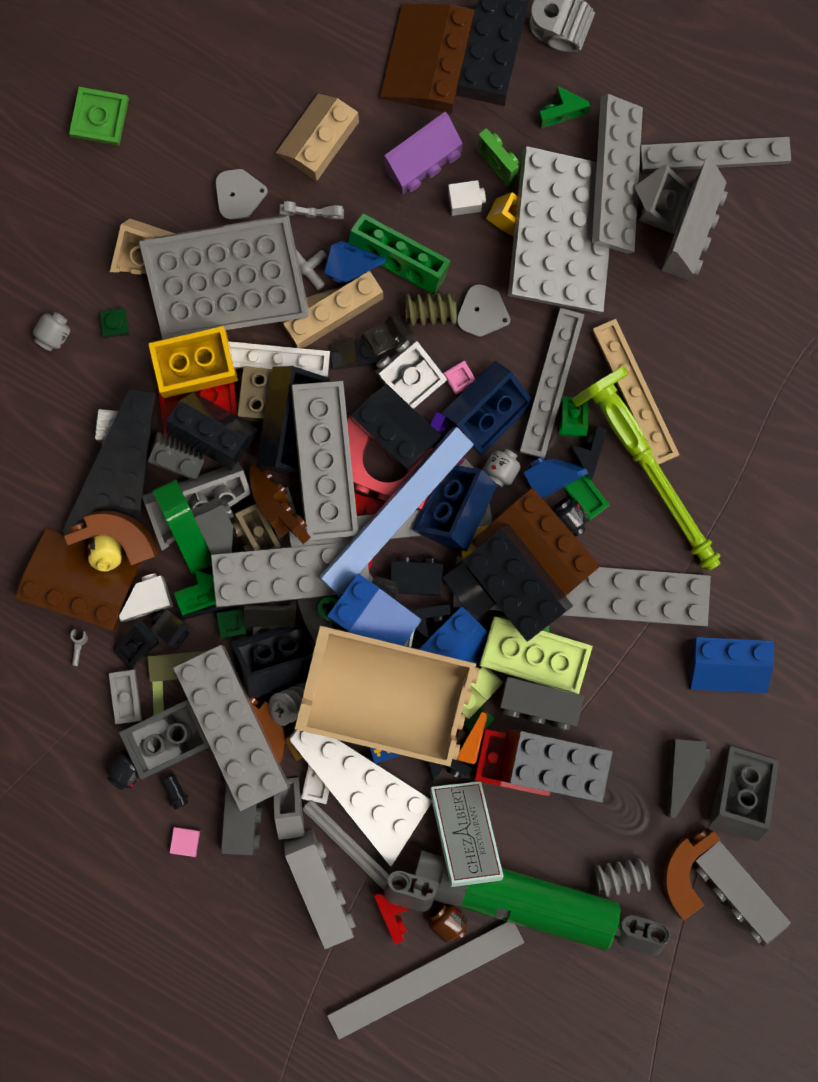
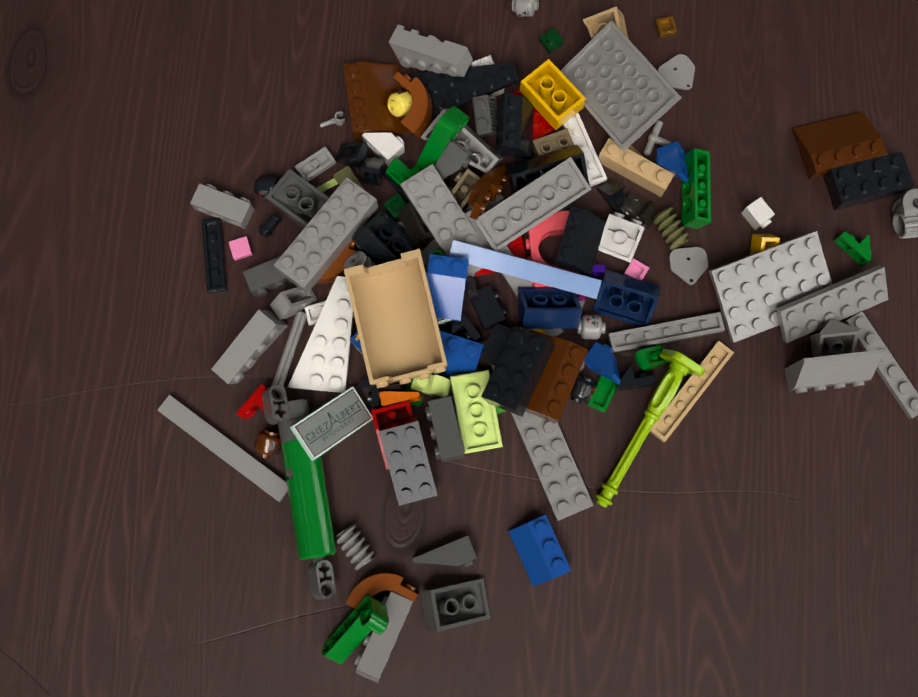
camera: 65 degrees right, 5 degrees down
(60, 483) = (429, 53): none -> light grey wedge
(118, 838) = (222, 205): none -> light grey brick
(170, 174) = (666, 26): none -> pearl gold tile
(177, 879) = (214, 256): none -> black tile
(319, 135) = (744, 103): tan slope -> none
(331, 212) = (699, 135): light grey piece -> none
(423, 154) = (772, 170): medium lavender slope -> none
(501, 162) = (797, 219): bright green plate -> none
(713, 905) = (366, 617): none -> green beam

